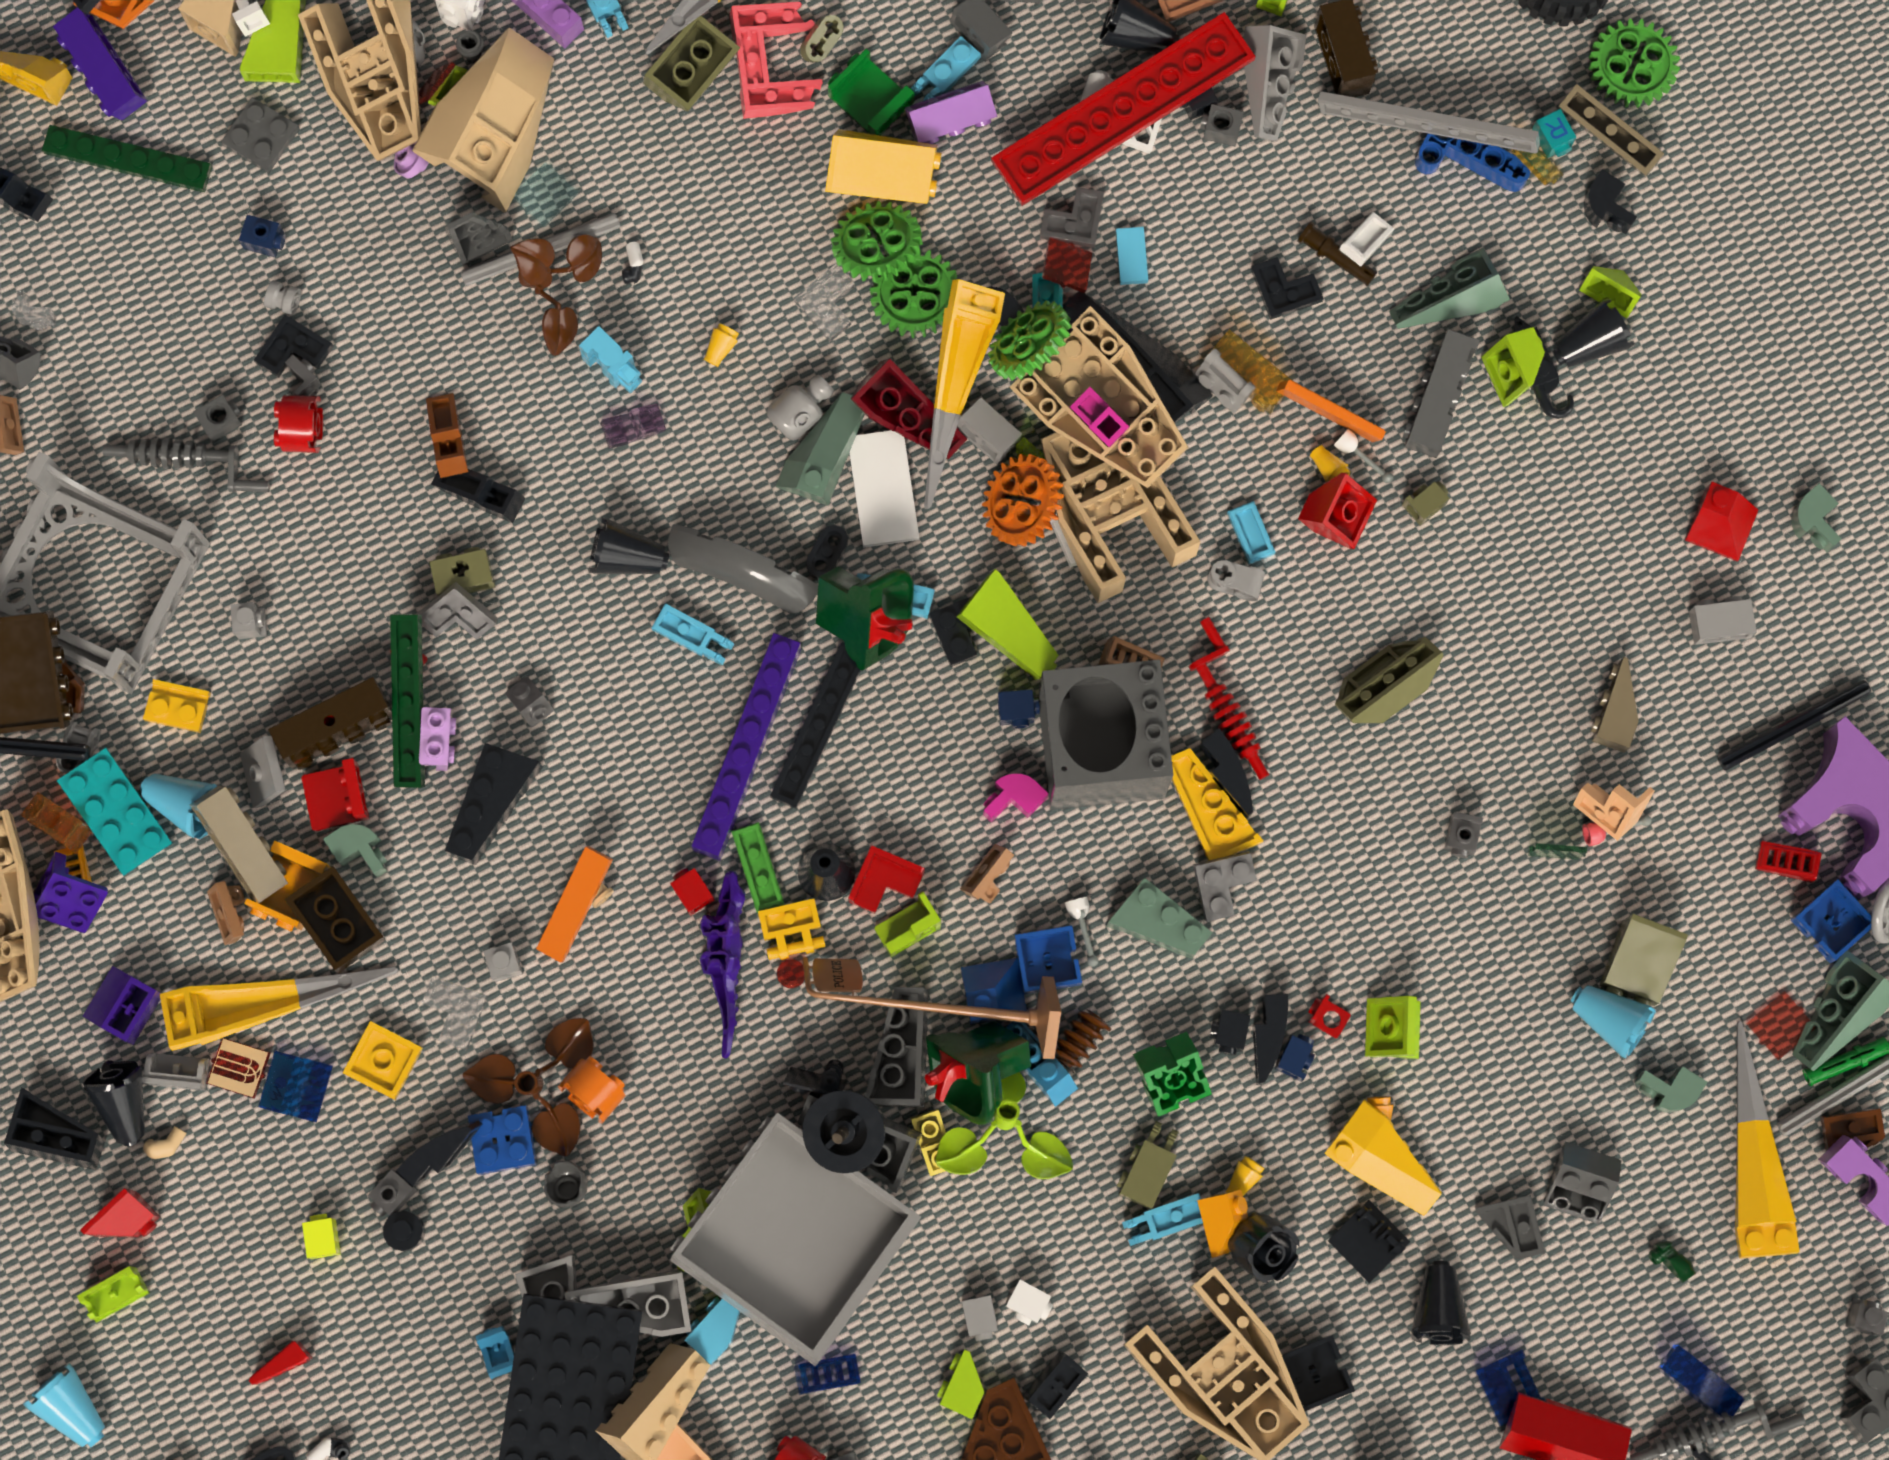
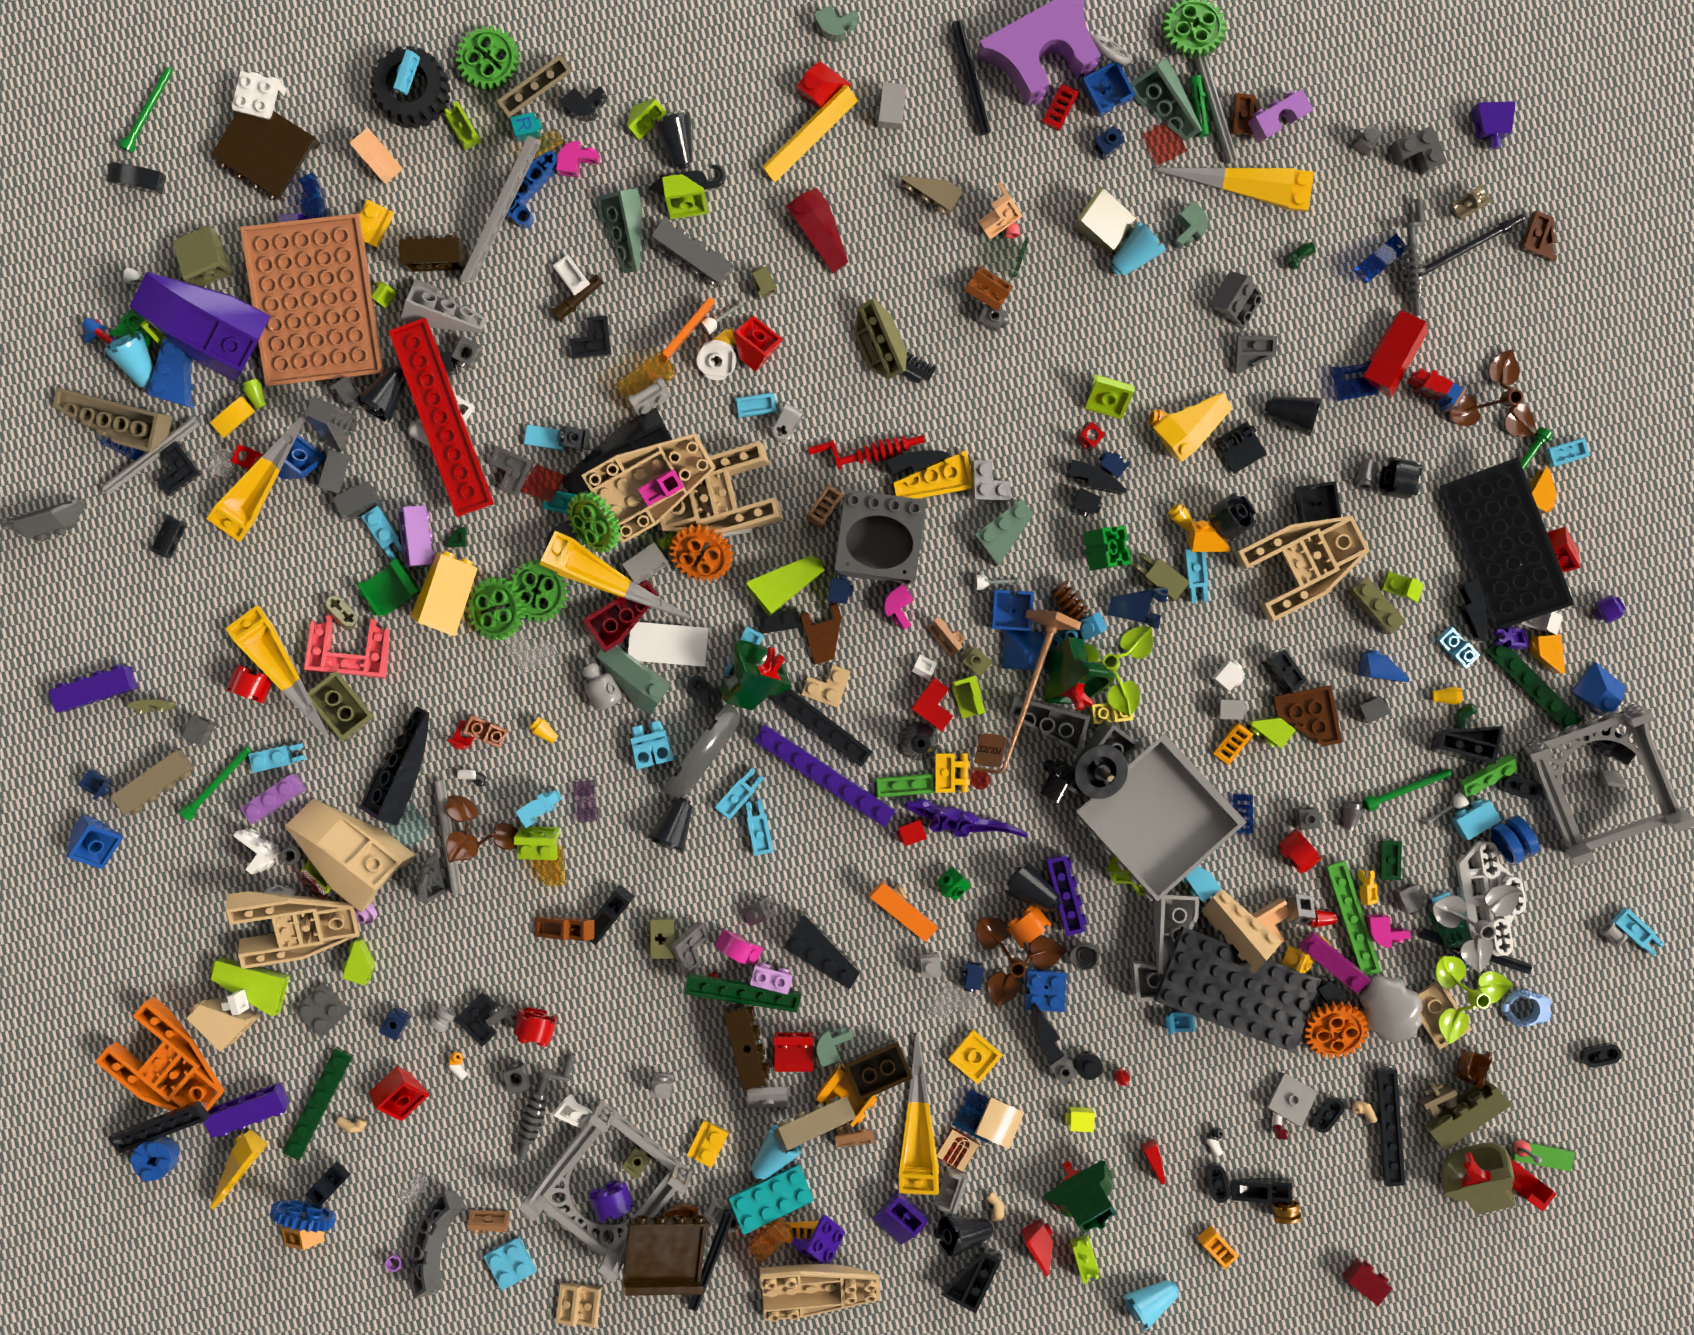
camera: 75 degrees left, 10 degrees up
(68, 585) = (610, 1200): none -> dark purple brick
(103, 209) = (351, 1127): none -> tan arm
(122, 606) = (632, 1166): none -> olive brick
(163, 262) = (398, 1094): none -> red slope
(185, 501) = (573, 1112): none -> white slope
(211, 1262) = (1084, 1196): none -> dark green piece
(219, 331) = (455, 1065): none -> arm
(292, 1118) = (999, 1122): none -> tan slope
(337, 170) = (360, 963): none -> lime slope
(397, 1285) = (1122, 1077): none -> red plate
(469, 683) = (738, 948): none -> dark pink brick
(500, 1028) = (972, 976): none -> dark blue brick
(533, 395) = (552, 871): none -> clear yellow wing
(559, 369) = (537, 843): none -> lime bracket
(603, 161) = (396, 779): none -> black wedge
(629, 967) = (952, 884): none -> green brick
(647, 674) = (759, 830): none -> medium azure hinge
(649, 1078) = (1030, 887): none -> black cone
(651, 1133) = (1064, 884): none -> dark purple brick
(678, 235) = (458, 740): none -> red bracket
(701, 266) = (484, 730): none -> dark orange slope
(730, 497) = (646, 745): none -> medium azure hips
(868, 730) = (828, 692): none -> tan plate
(935, 853) = (924, 667): none -> white plate
(946, 701) = (823, 635): none -> reddish brown flag
(952, 1343) = (1242, 742): none -> light orange slope
(961, 171) = (457, 538): none -> dark green tile
(962, 926) = (976, 661): none -> olive brick
(1098, 1139) = (1136, 606): none -> dark blue flag
(1140, 303) = (565, 440): none -> black brick
(1288, 452) = (708, 366): none -> white plate
(1355, 742) = (914, 372): none -> black piece
(1377, 1438) = (1366, 474): none -> flat silver cone
(1502, 817) = (988, 288): none -> dark orange slope
(1528, 203) = (572, 155): none -> dark pink brick
(1531, 50) = (462, 126): none -> lime hinge
(1531, 556) = (816, 222): none -> dark red wedge
(1652, 518) = (809, 133): none -> yellow tile
(1758, 941) = (1108, 142): none -> dark blue brick

